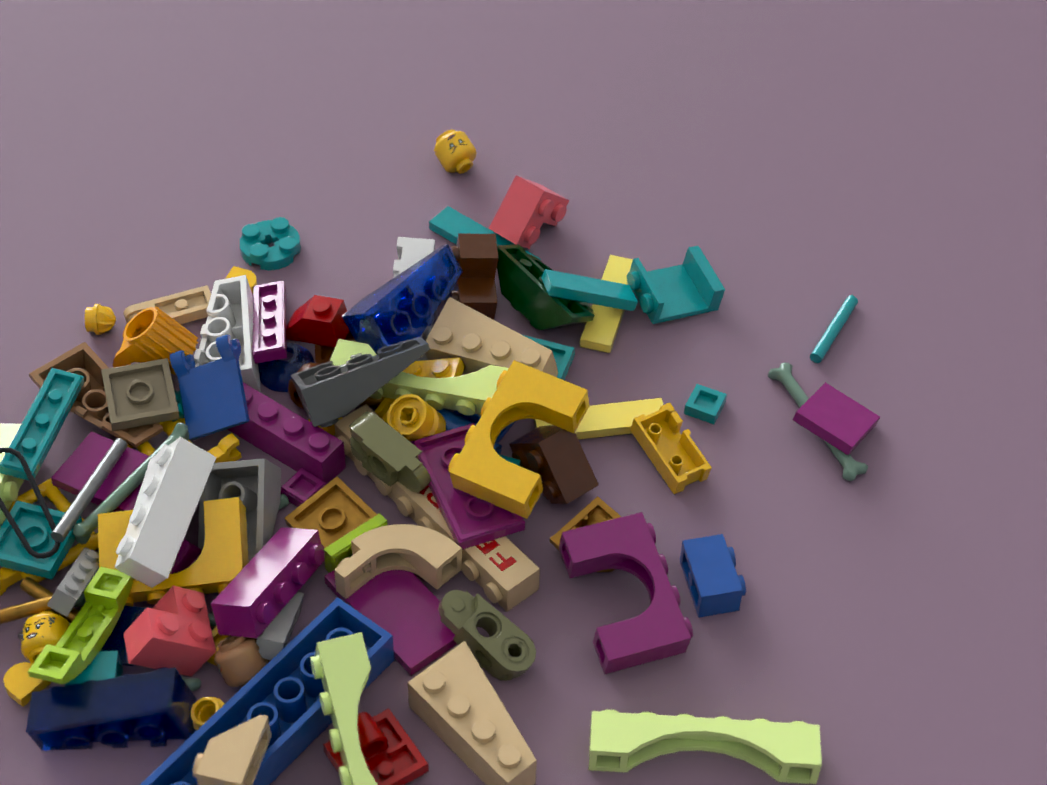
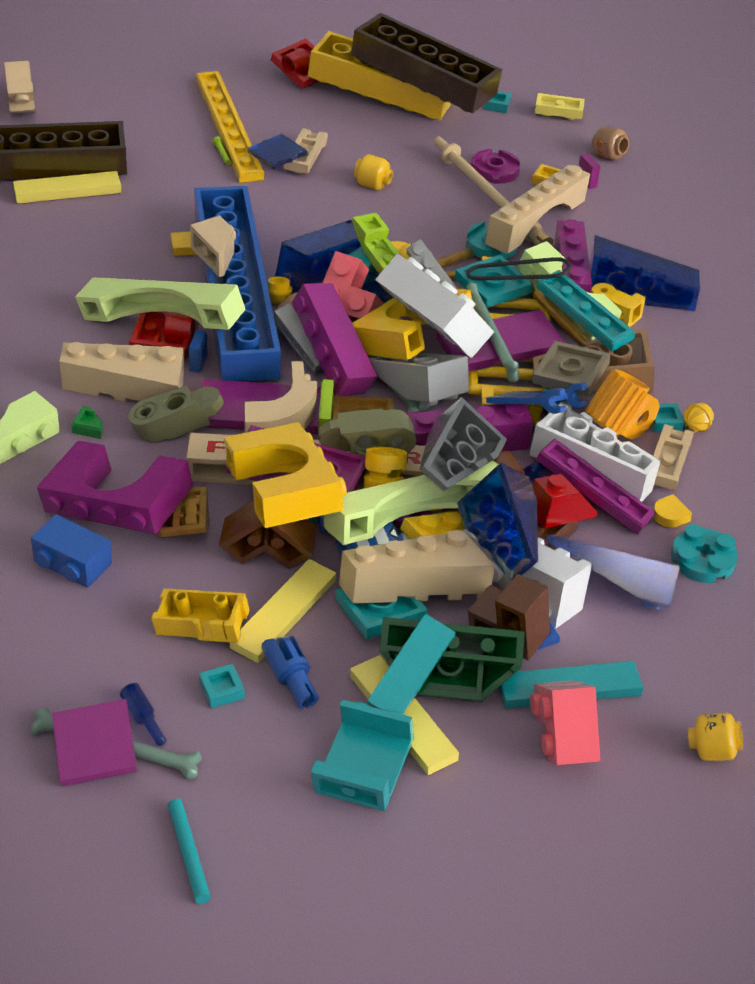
camera: 130 degrees right, 5 degrees down
(26, 490) = (560, 318): none -> pearl gold bar
(89, 490) = (504, 308): flat silver bar -> none
(108, 342) = (670, 415): none -> teal tile
(343, 257) = (638, 575): none -> clear blue wedge
(379, 698) = (198, 351): none -> blue tile
(559, 711) = (87, 423): none -> green tile
(649, 372) = (291, 668): none -> blue arm
(778, 425) = (142, 711): none -> clear blue axle

